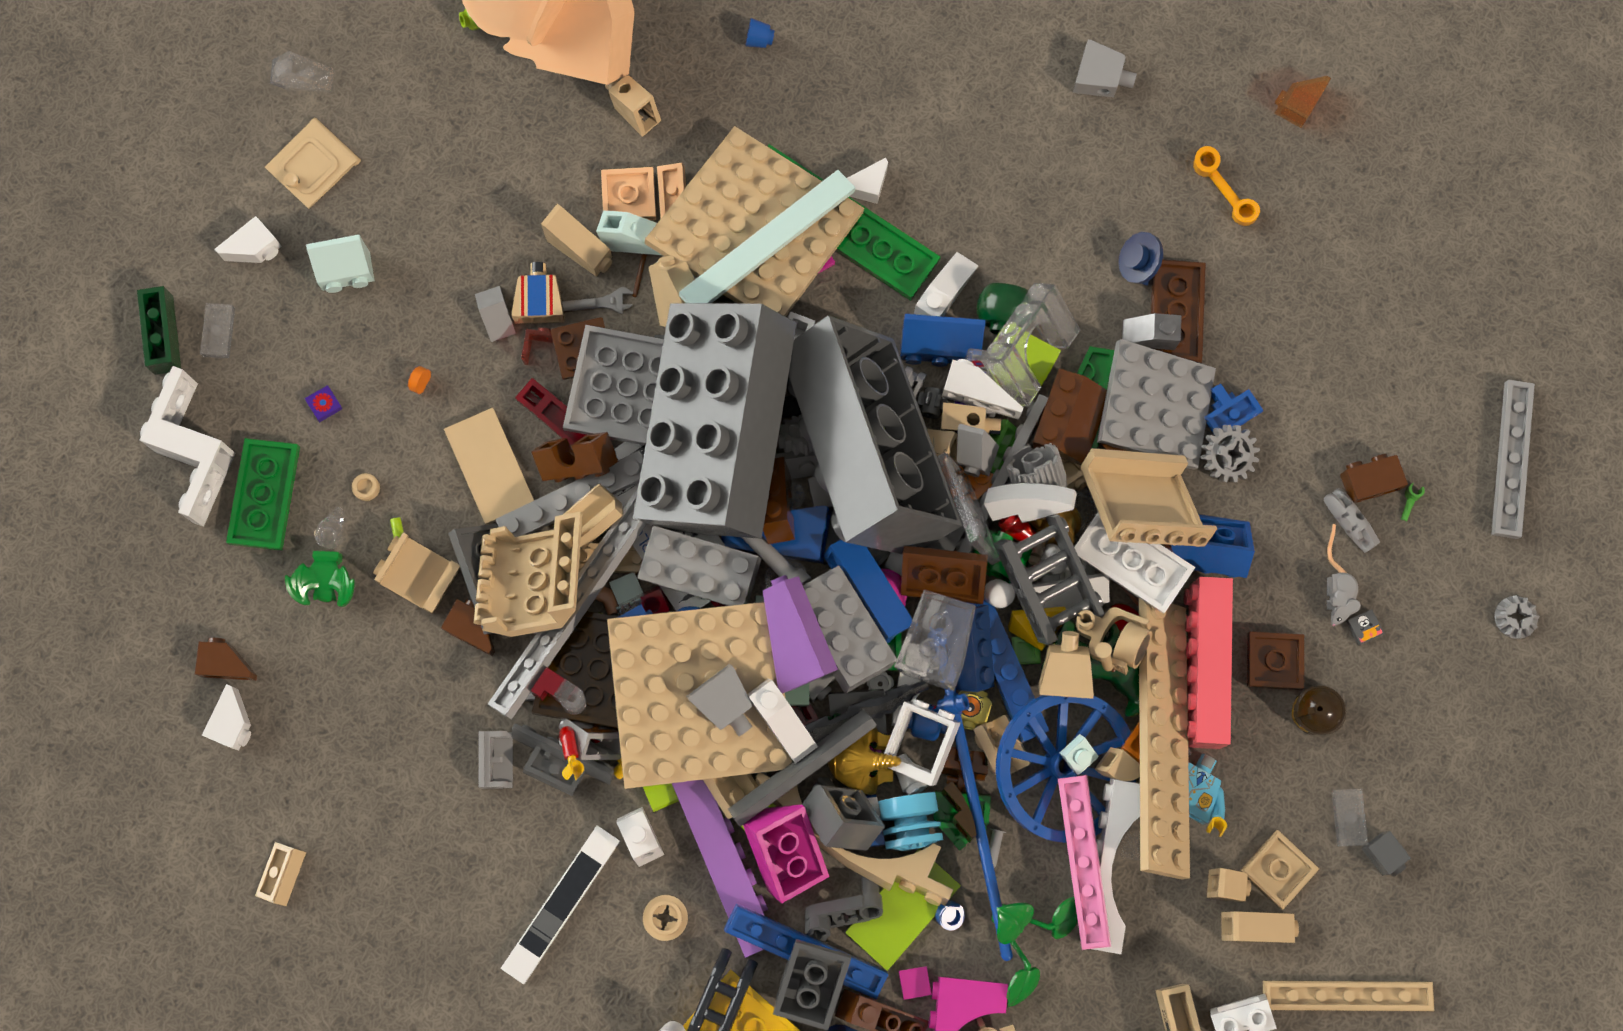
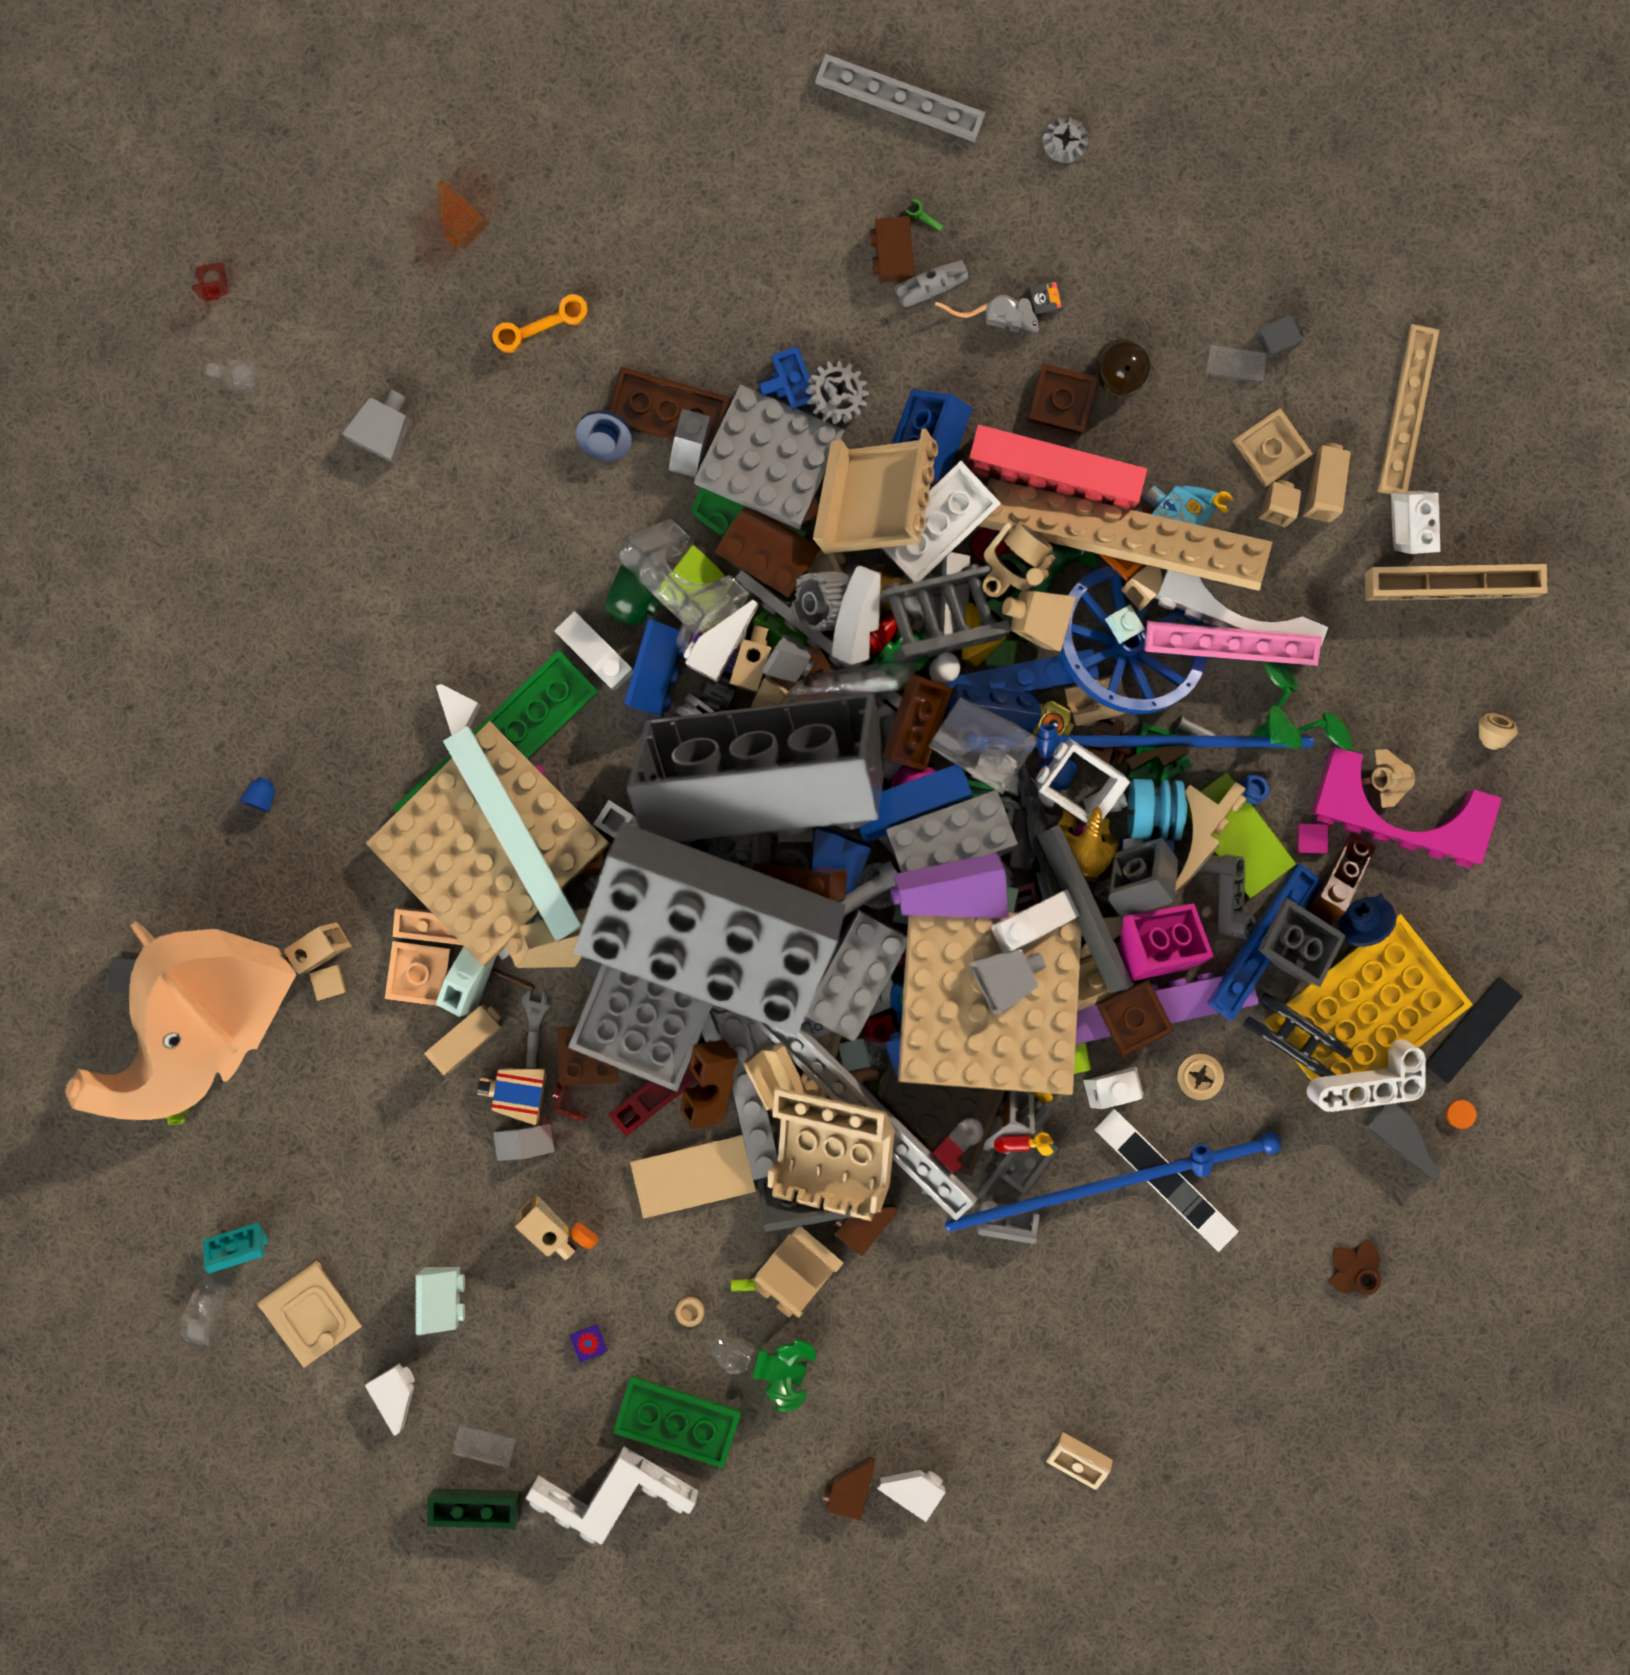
camera: 75 degrees left, 10 degrees up
(360, 86) = (234, 1247): none -> teal bracket
(427, 337) = (537, 1219): none -> tan torso
(584, 932) = (1200, 1161): none -> blue bar
(606, 122) = (327, 982): none -> tan tile
(709, 839) = (1134, 1017): none -> reddish brown tile

